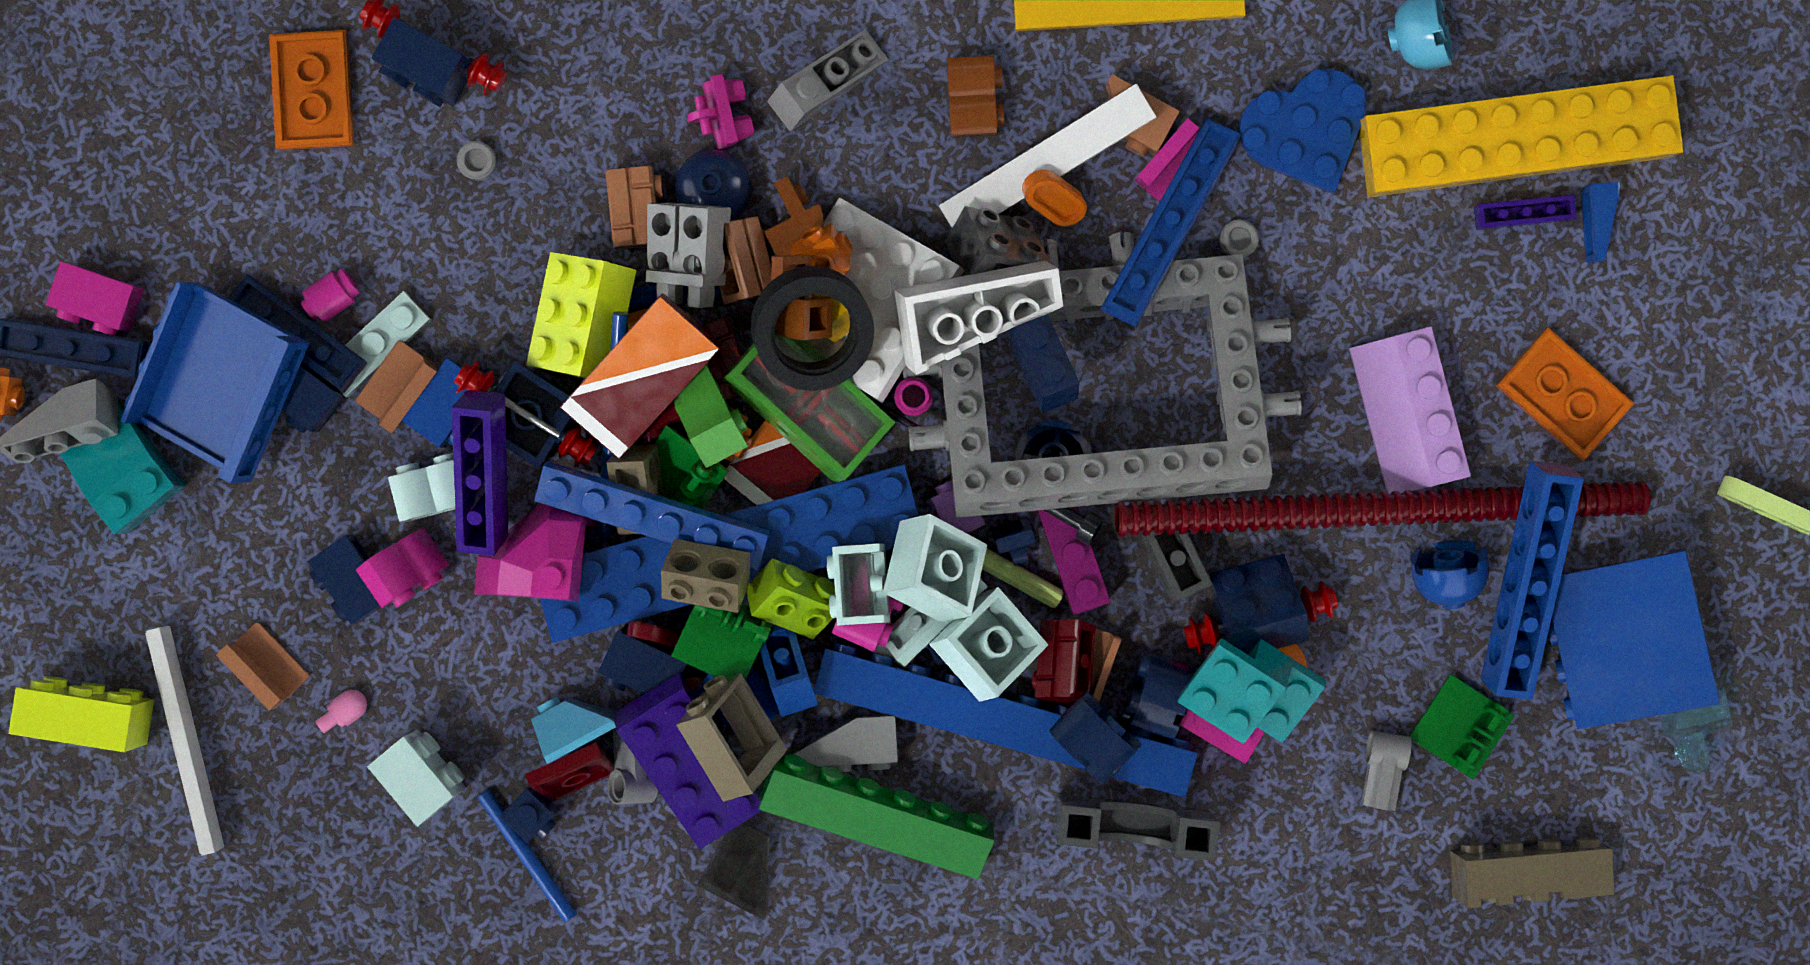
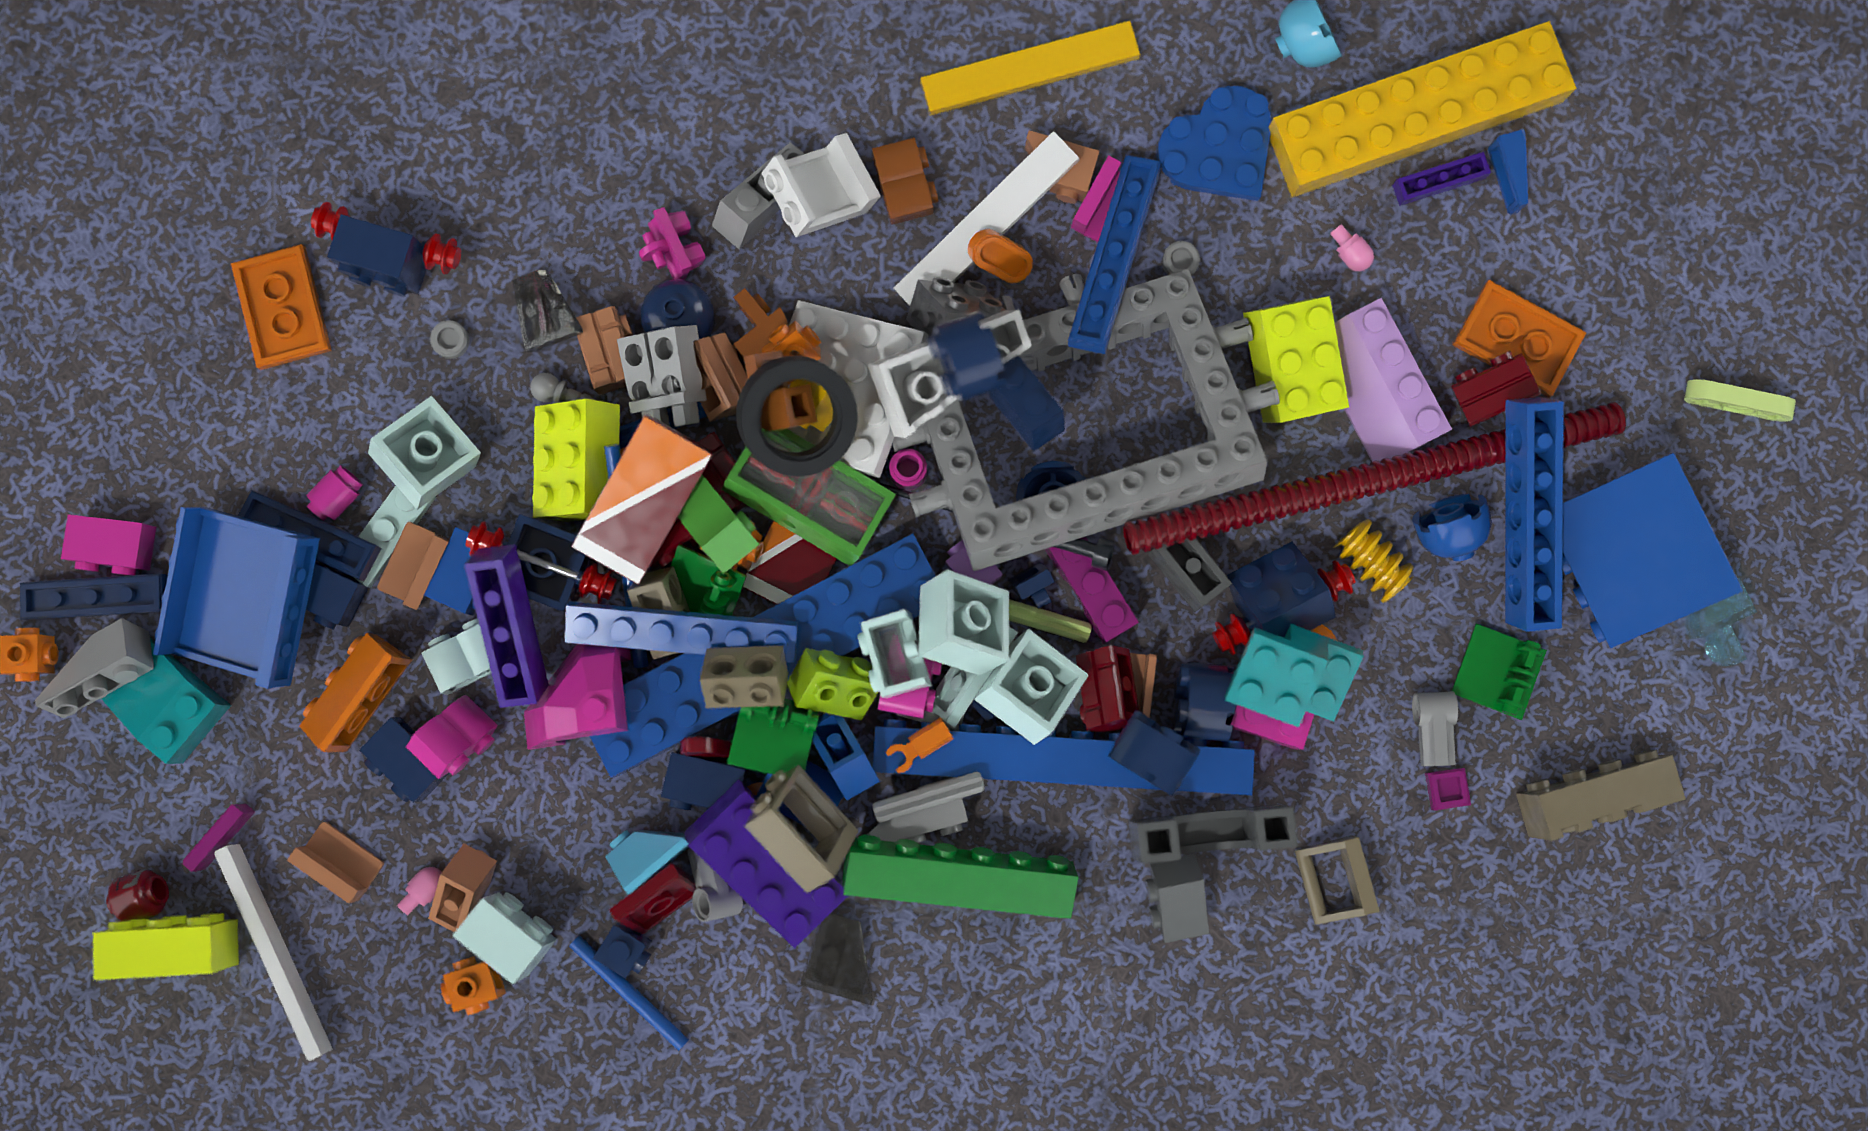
camera: 10 degrees left, 5 degrees down
(60, 656) = (137, 895): none -> dark red head
(150, 615) = (218, 837): none -> magenta tile
(311, 501) = (353, 693): none -> orange slope
(382, 718) = (461, 887): none -> nougat slope
(387, 812) = (485, 983): none -> orange brick
(429, 275) = (424, 452): none -> light aqua brick
(566, 233) = (547, 388): none -> light grey bar
(577, 154) = (543, 312): none -> clear smoke wing
(863, 730) = (928, 796): none -> light grey axle
(868, 676) = (922, 743): none -> orange bar
(887, 86) = (821, 186): none -> white panel
(994, 311) = (967, 357): none -> dark blue brick
(1088, 883) = (1178, 898): none -> dark grey brick
(1271, 894) = (1357, 875): none -> dark tan tile
(1333, 369) = (1301, 355): none -> neon yellow brick
(1364, 589) = (1375, 560): none -> yellow piece
(1383, 831) = (1448, 789): none -> magenta tile
(1416, 266) = (1353, 249): none -> bright pink cylinder
(1513, 445) = (1486, 392): none -> dark red brick

